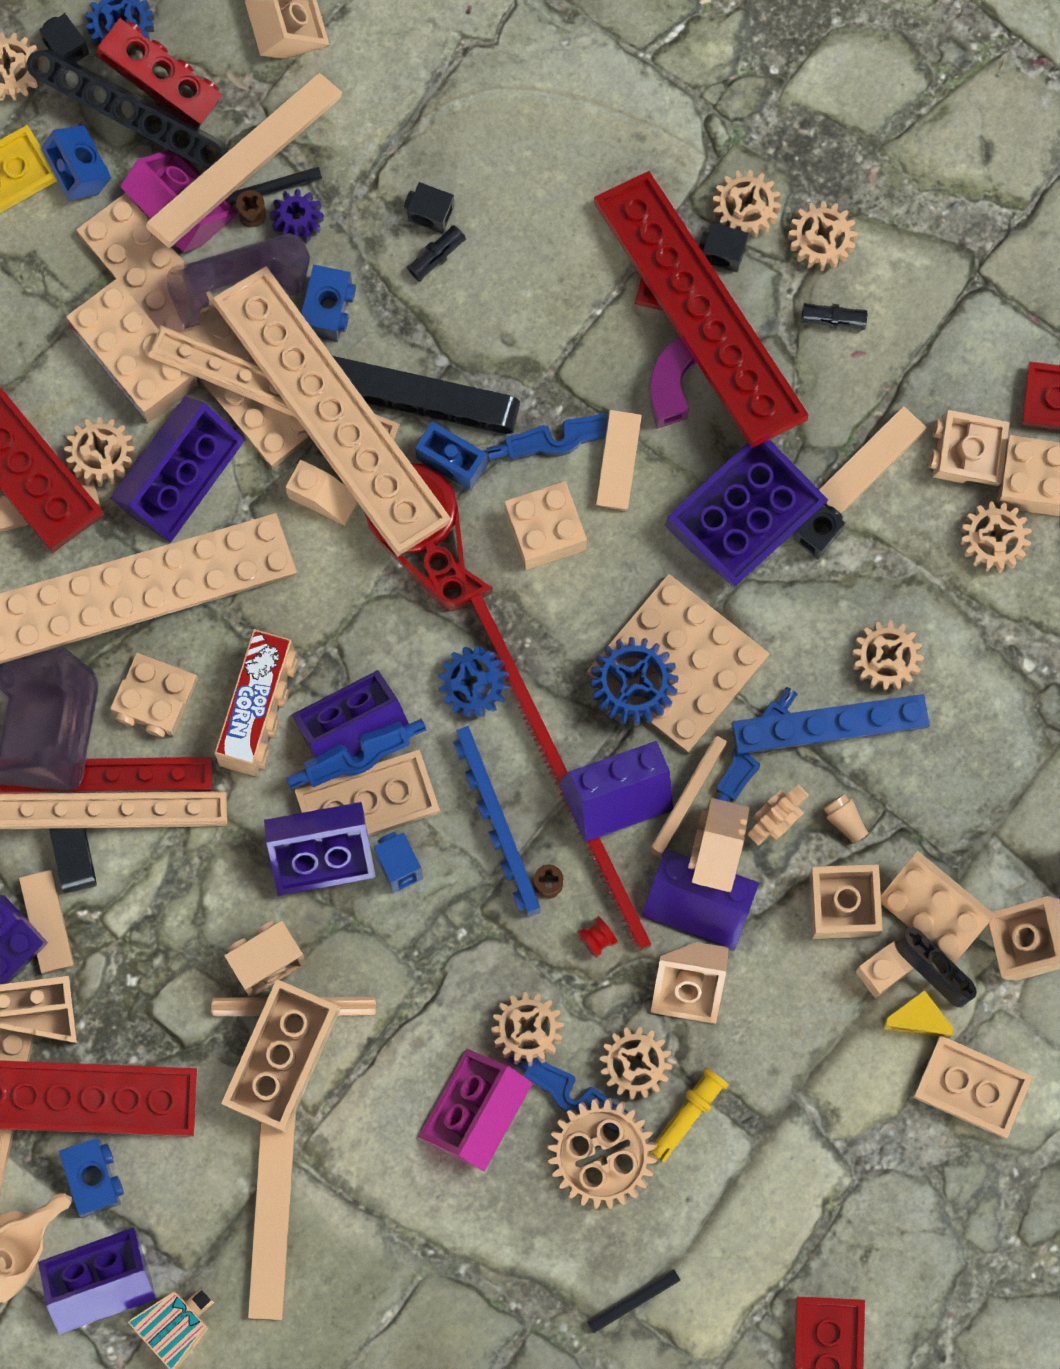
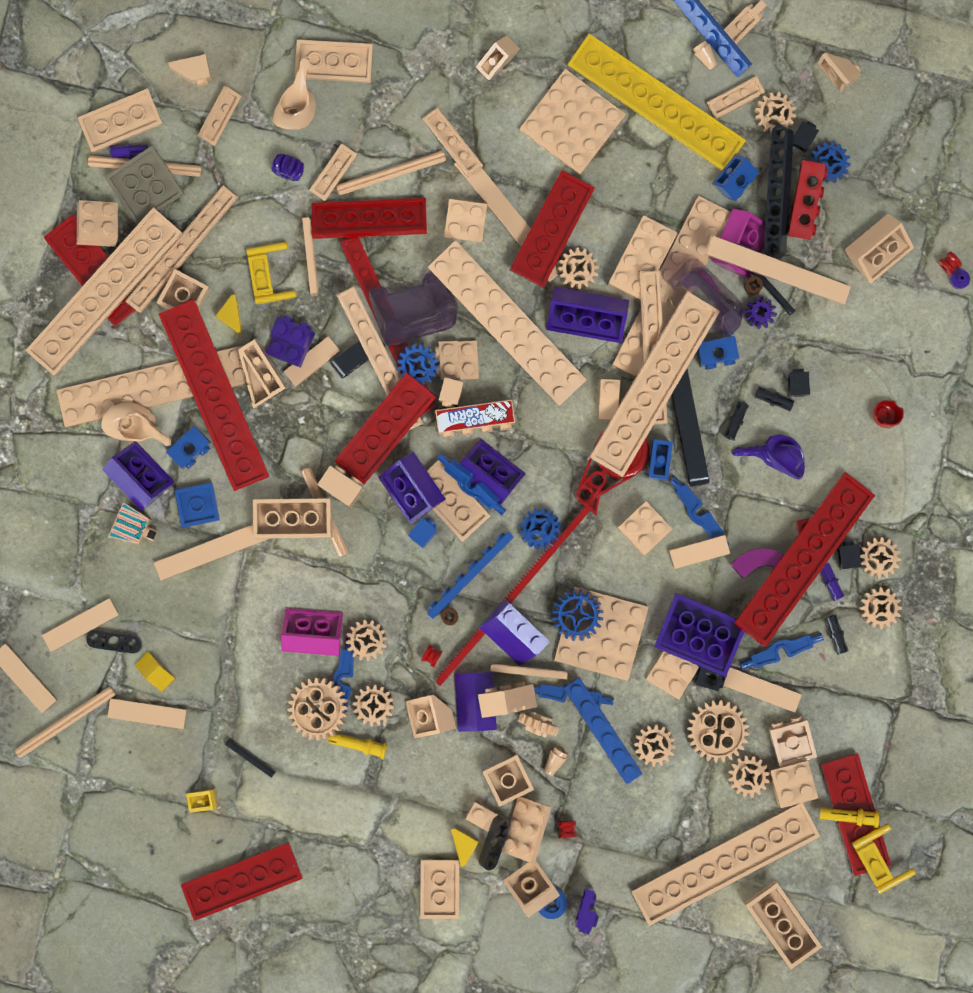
camera: 65 degrees right, 10 degrees up
(121, 738) = (412, 360): none -> blue gear
(188, 1205) = (197, 505): none -> blue plate
(198, 722) = (450, 393): none -> light nougat brick
(205, 848) = (385, 428): none -> red plate
(443, 322) = (736, 420): none -> black pin
(522, 278) = (779, 453): none -> dark purple hat
(536, 100) = (888, 414): none -> red hair
(754, 290) = (831, 582): none -> dark purple axle
(787, 582) = (672, 674): none -> light nougat plate
(824, 392) = (791, 648): none -> blue piece
(892, 576) = (735, 732): none -> light nougat gear
(961, 846) = (567, 829): none -> red wheel

